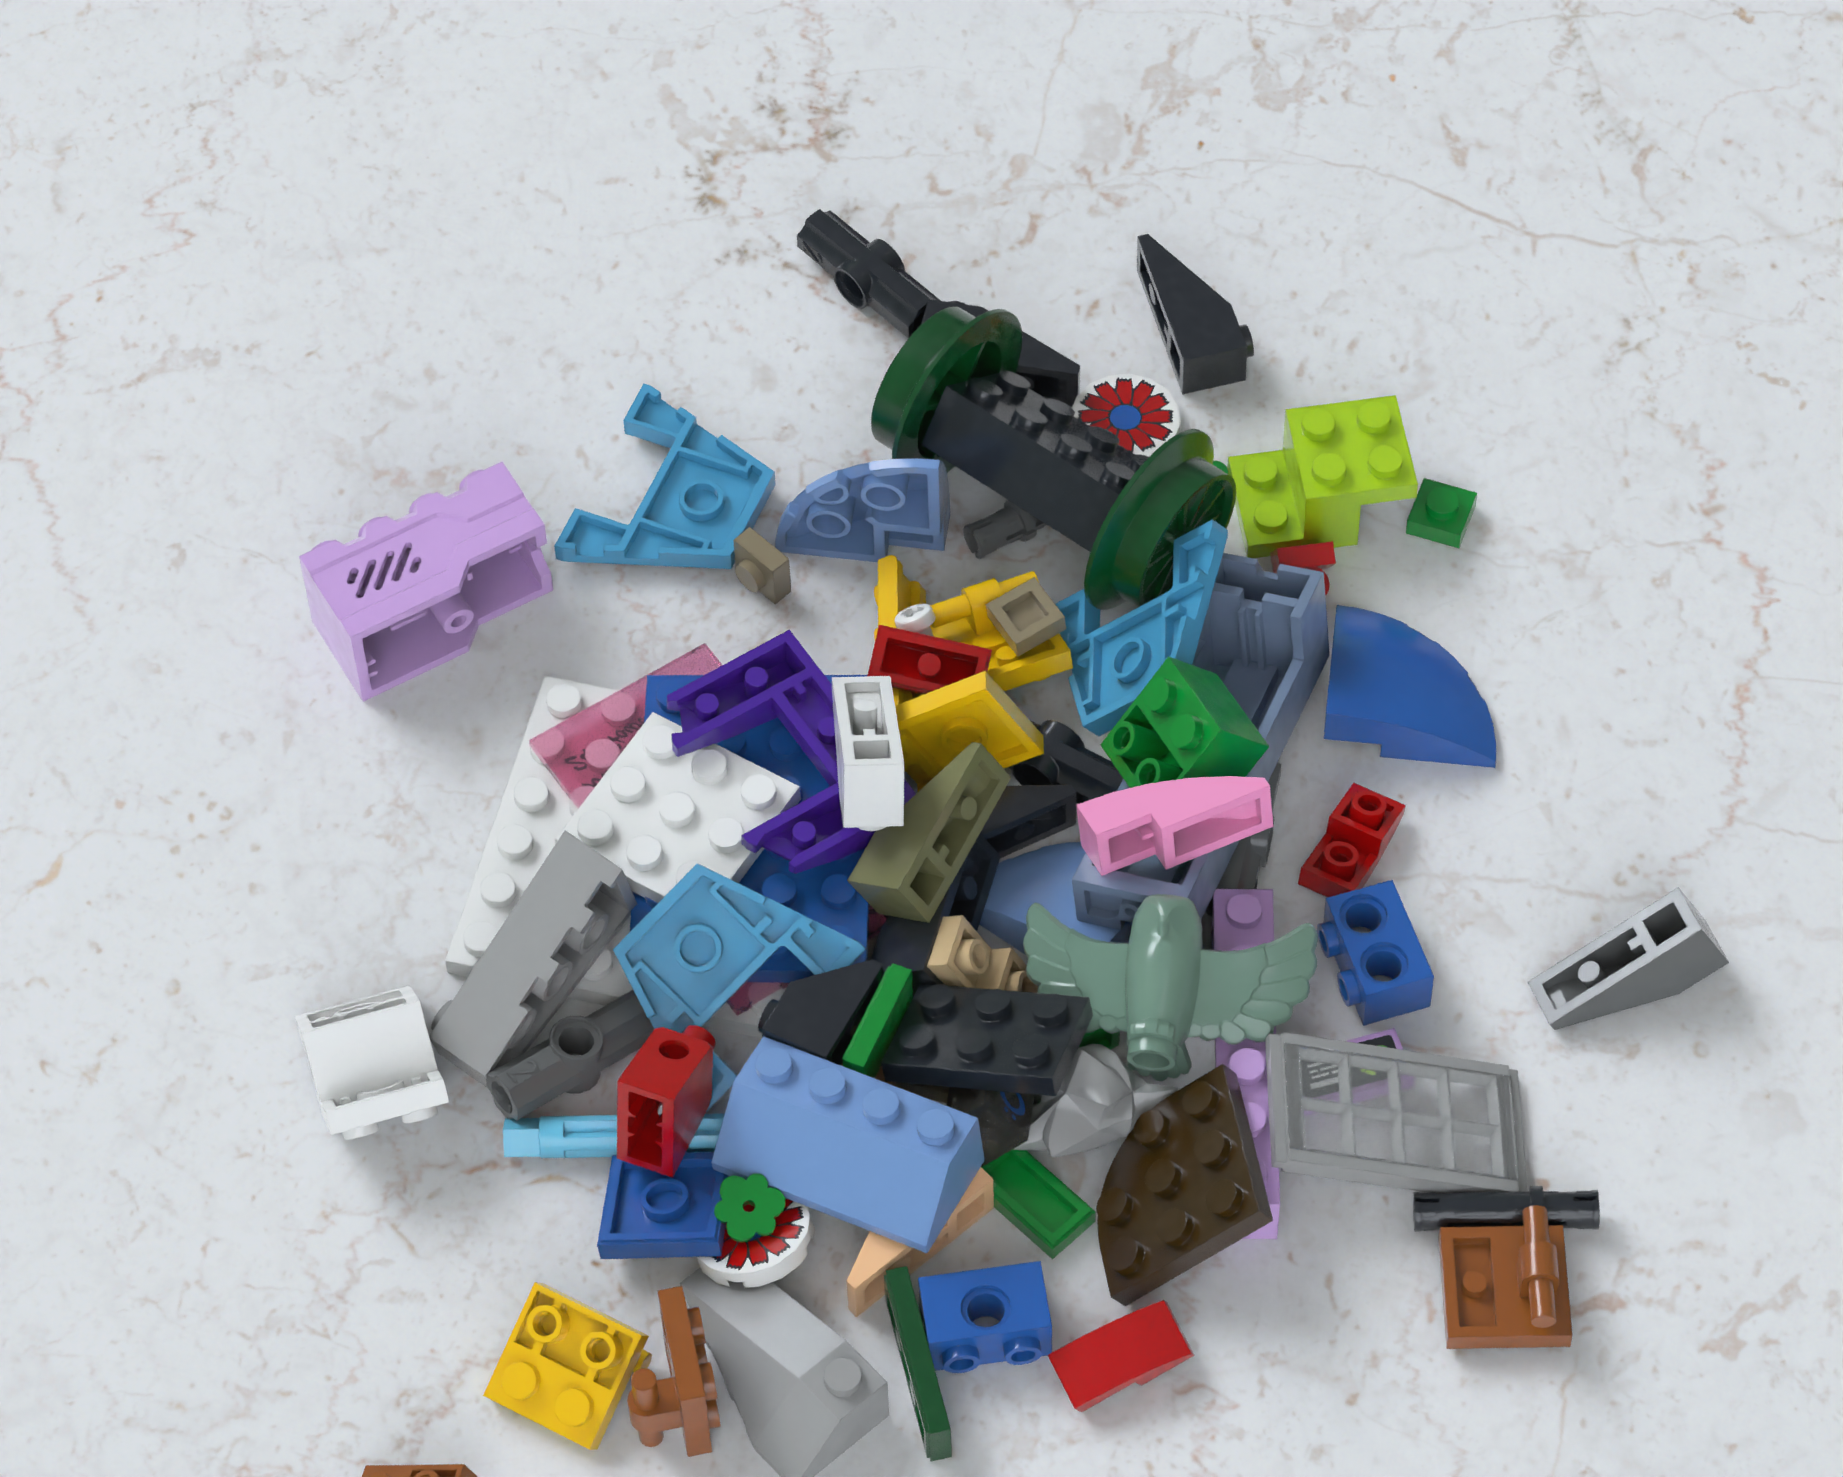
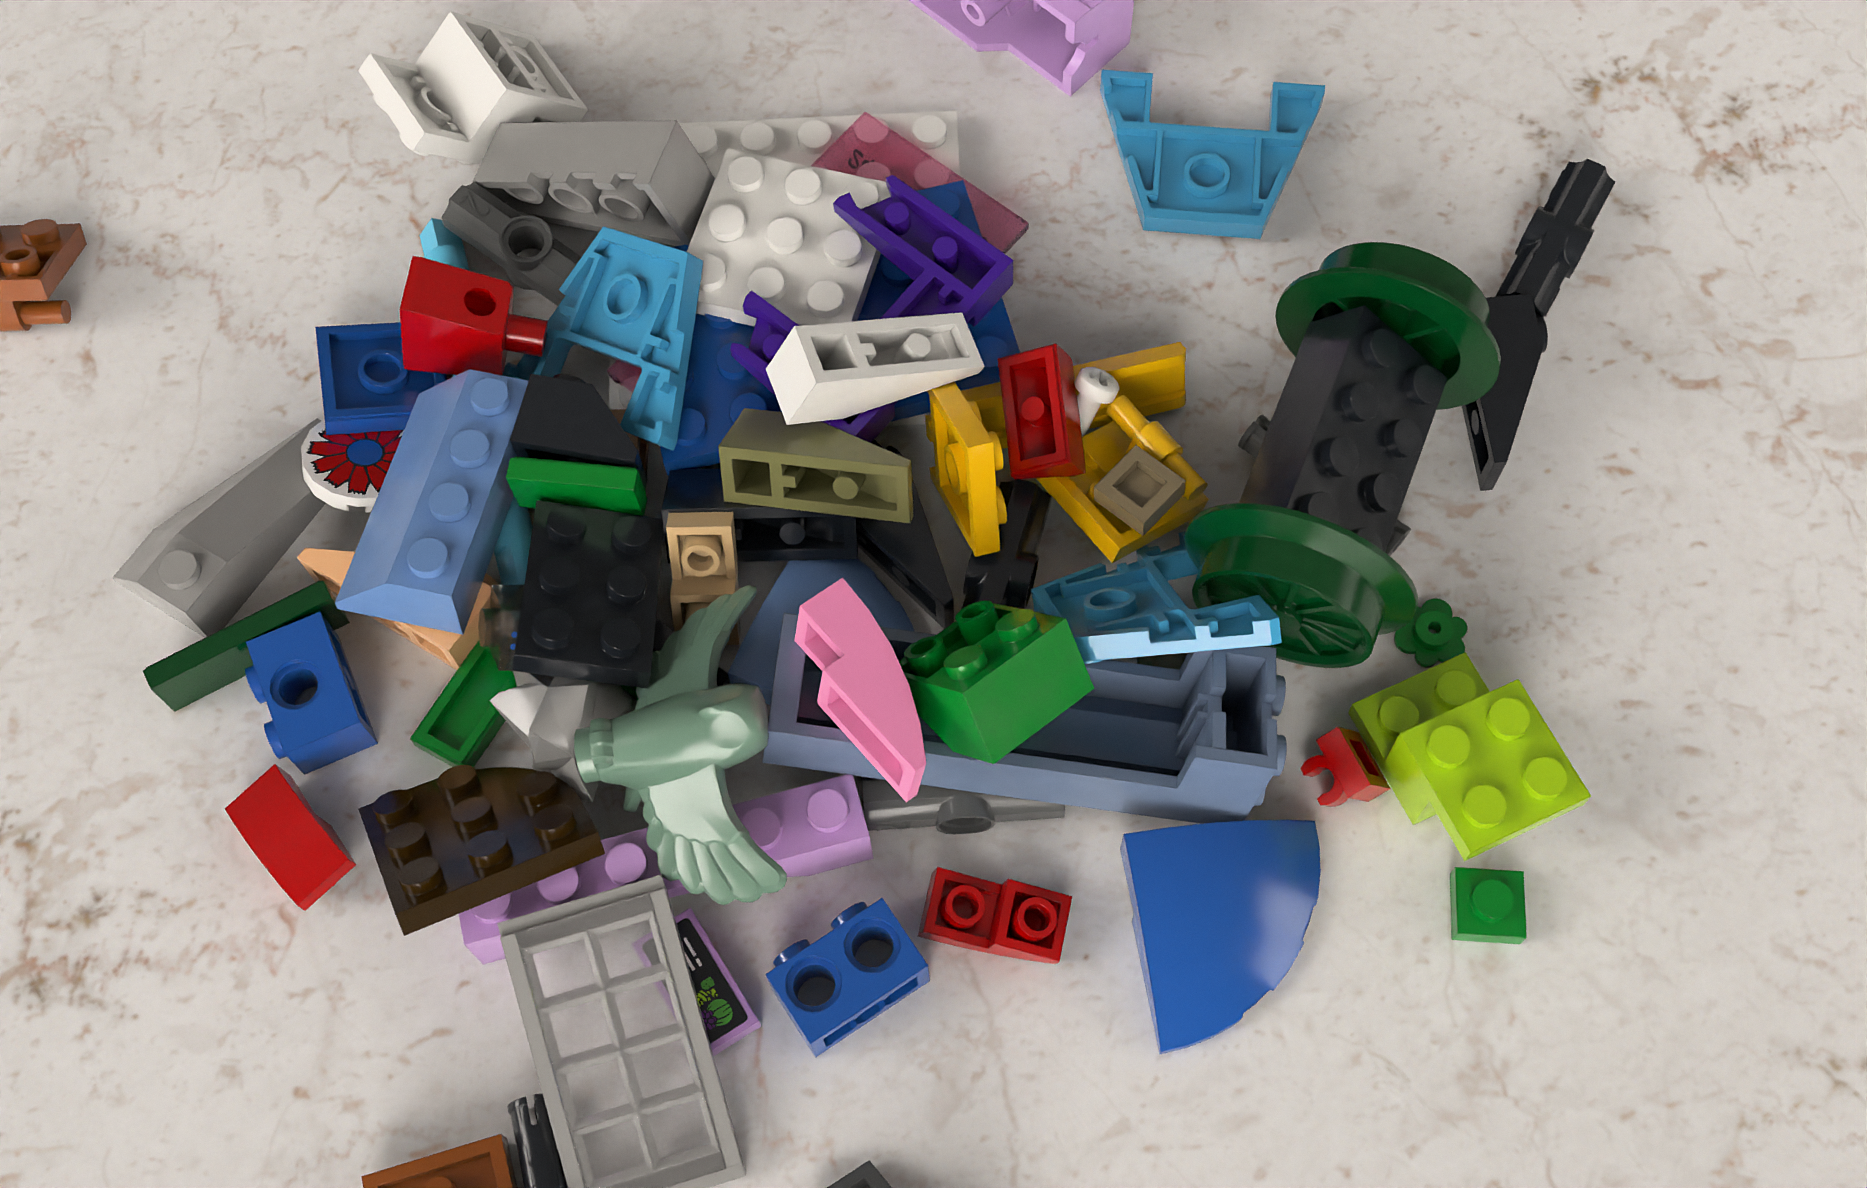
camera: 75 degrees right, 10 degrees up
(567, 1365) = (200, 346): yellow plate -> none
(690, 1392) = (175, 433): dark orange plate -> none
(754, 1191) = (371, 438): green plant -> none
(761, 566) = (1144, 248): dark tan plate -> none
(867, 509) = (1237, 325): medium blue brick -> none
(1132, 409) = (1473, 539): tile -> none
(1193, 321) = (1621, 575): black slope -> none

